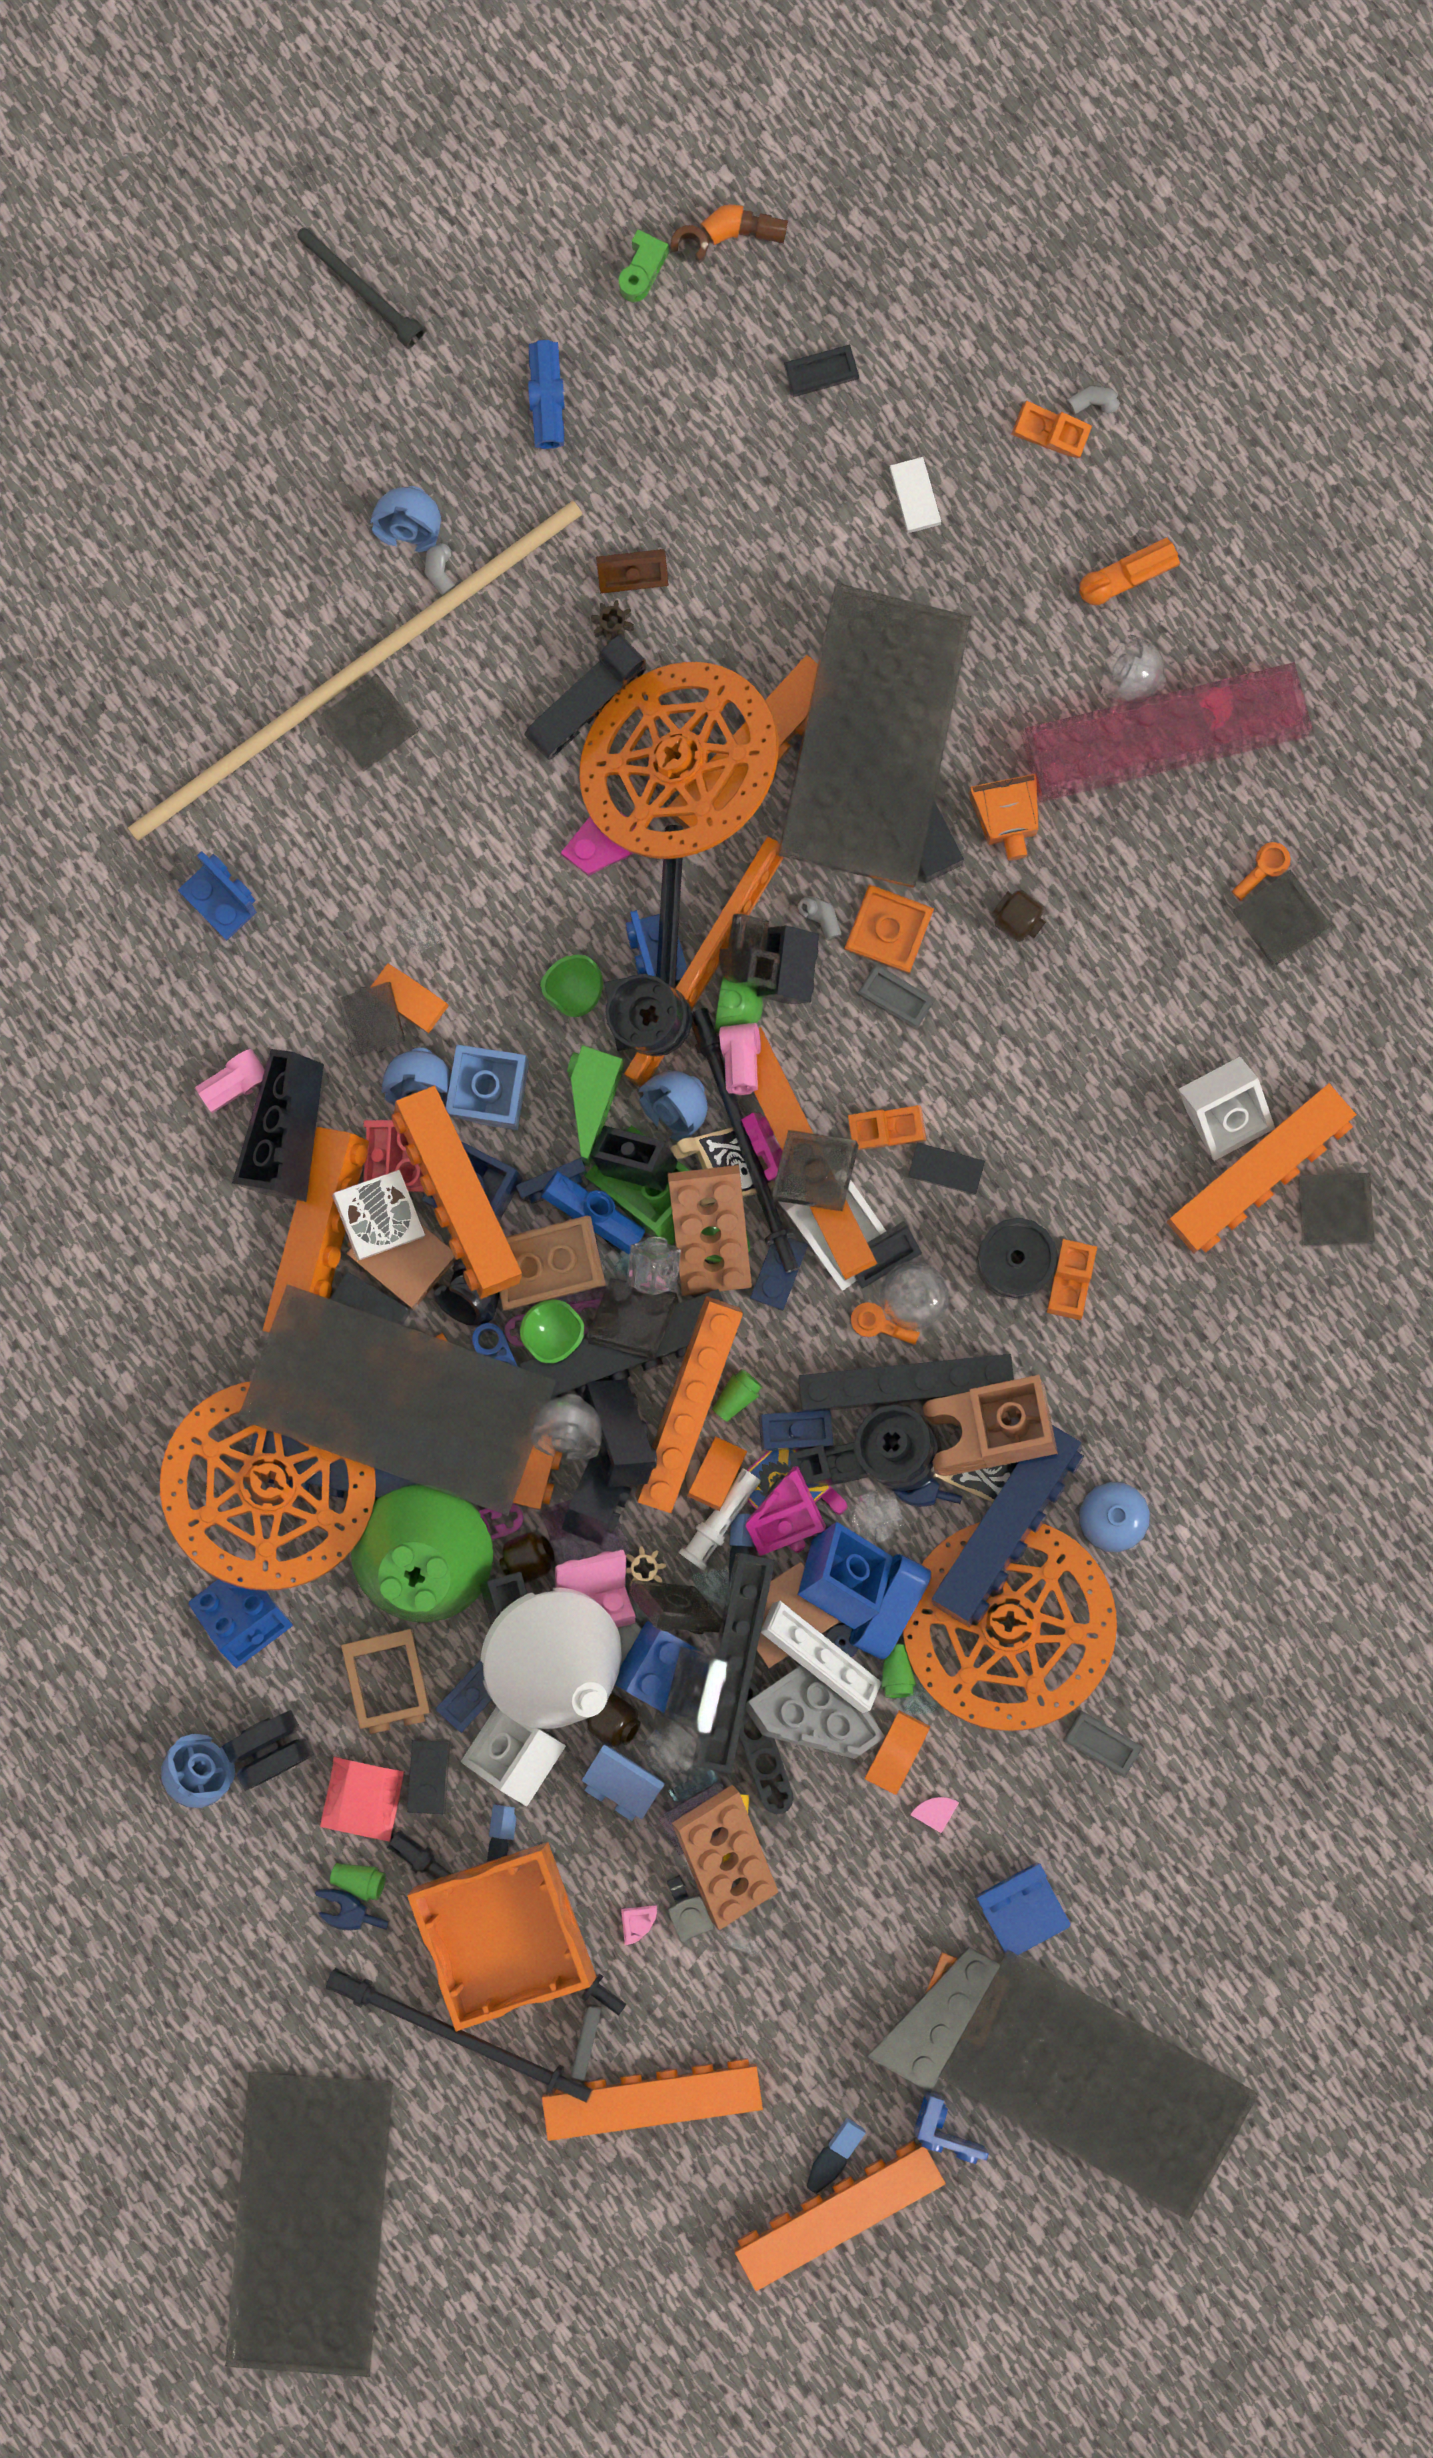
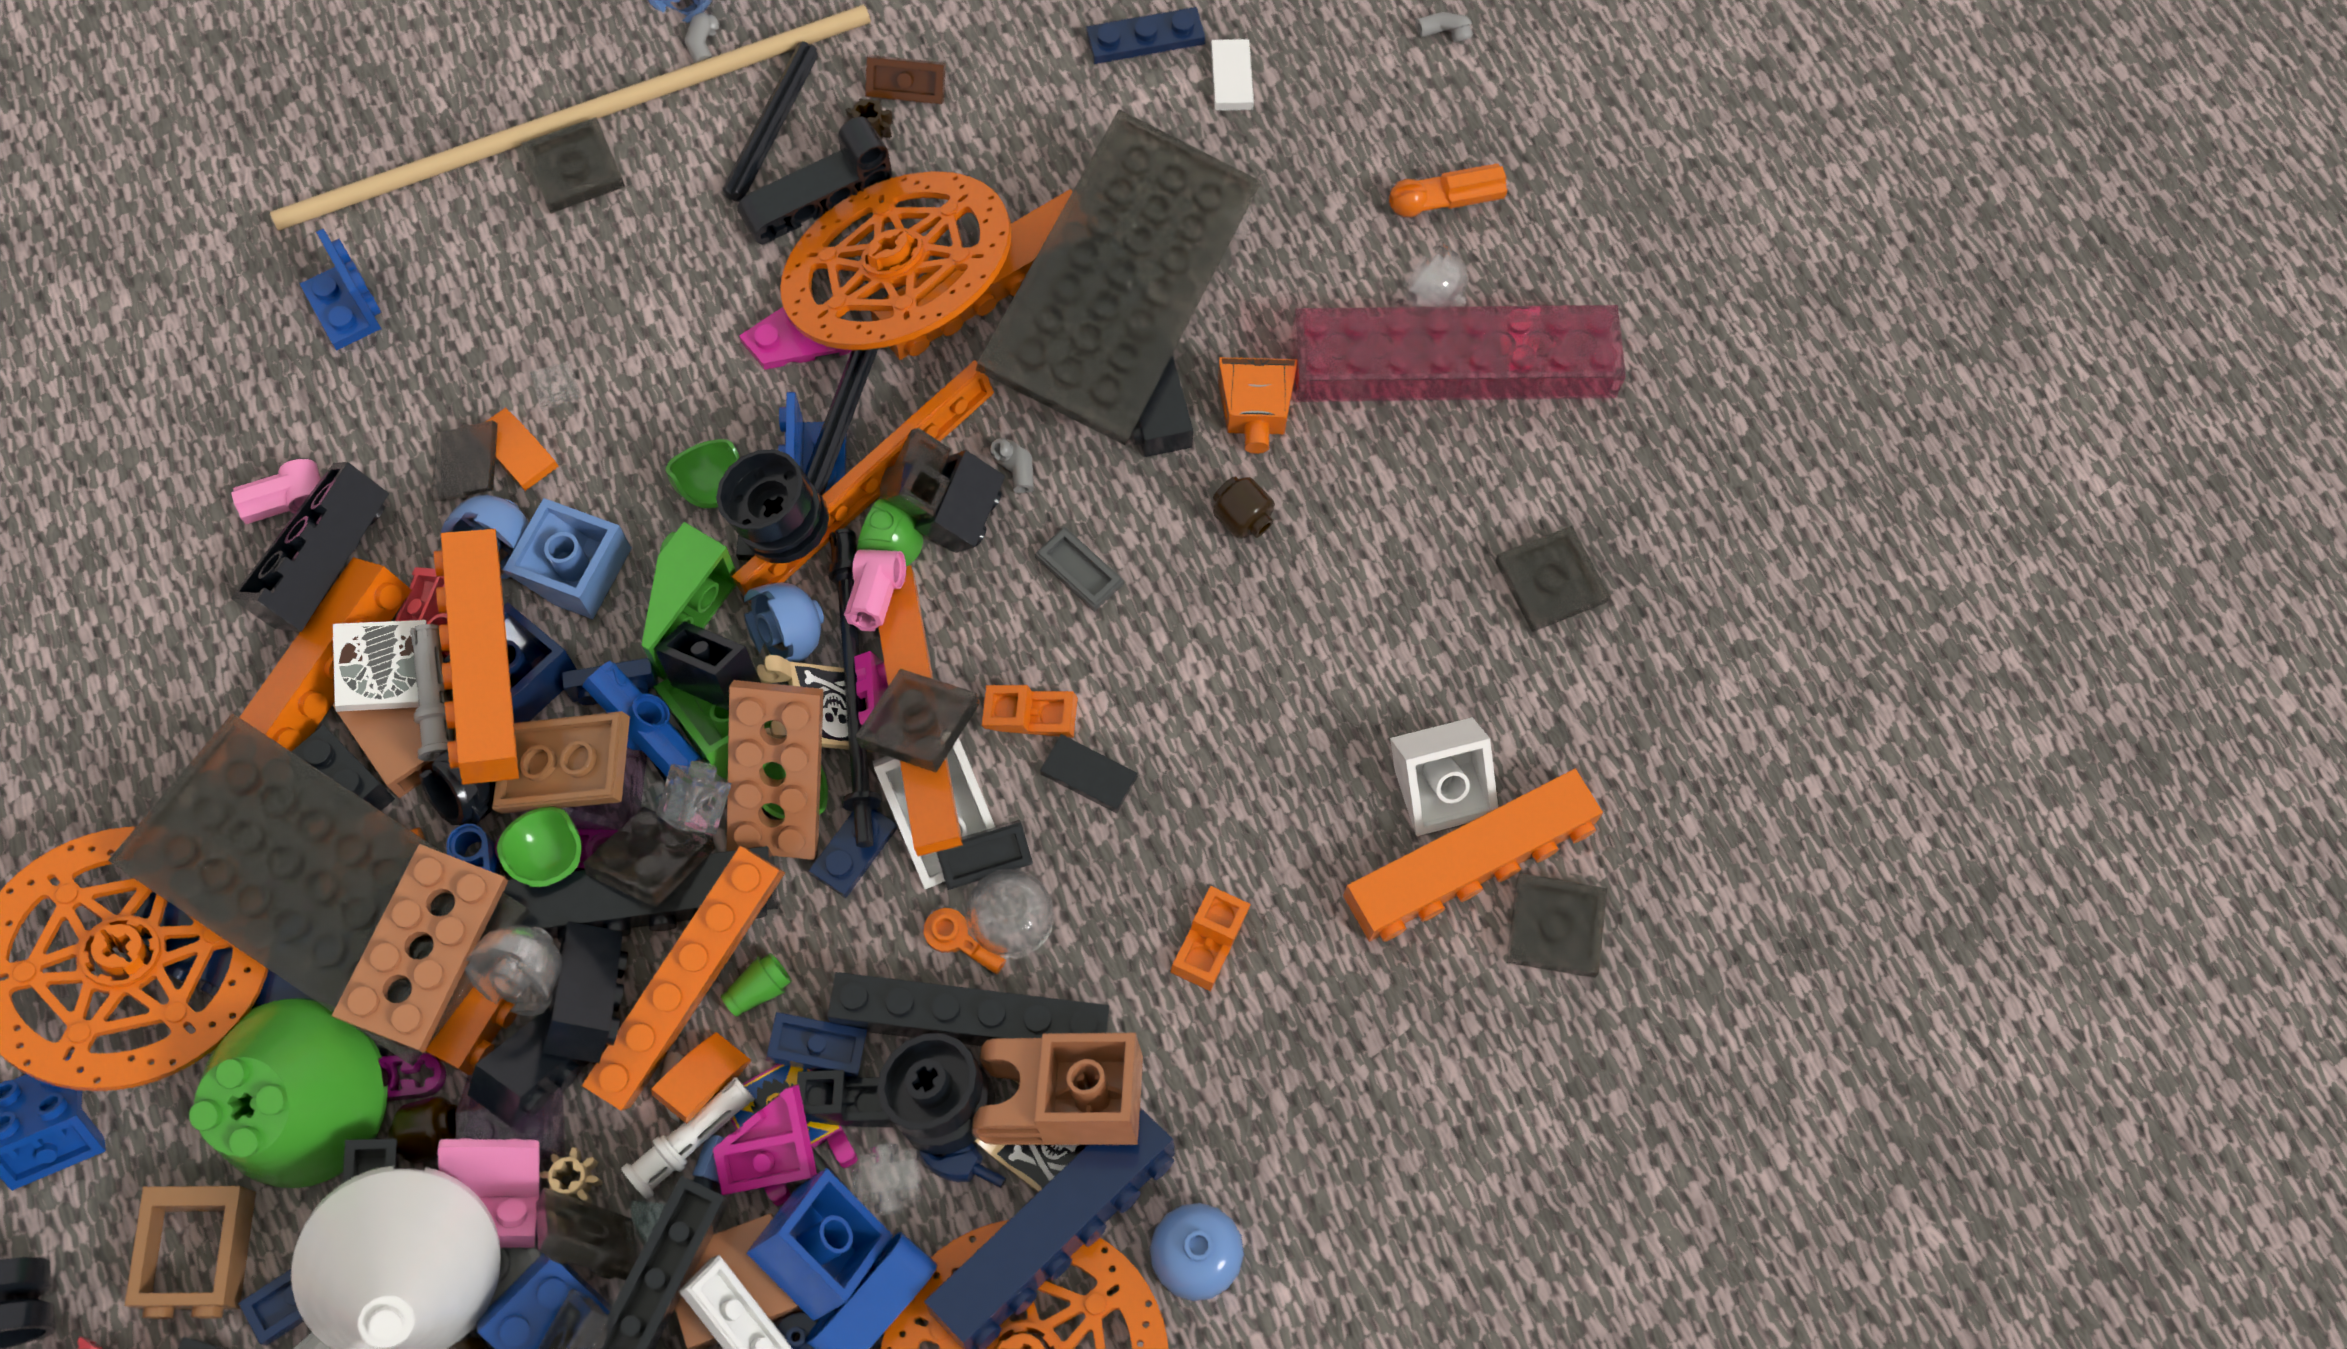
camera: 10 degrees right, 15 degrees down
(435, 1246) = (431, 692): none -> light grey pin
(473, 1411) = (435, 976): none -> nougat plate
(525, 637) = (770, 122): none -> black axle
(829, 472) = (1145, 35): none -> dark blue plate
(889, 929) = (1090, 495): orange tile -> none
(1013, 1279) = (1142, 919): black wheel -> none
(1052, 431) = (1401, 49): orange slope -> none
(1271, 861) = (1549, 516): orange plate -> none

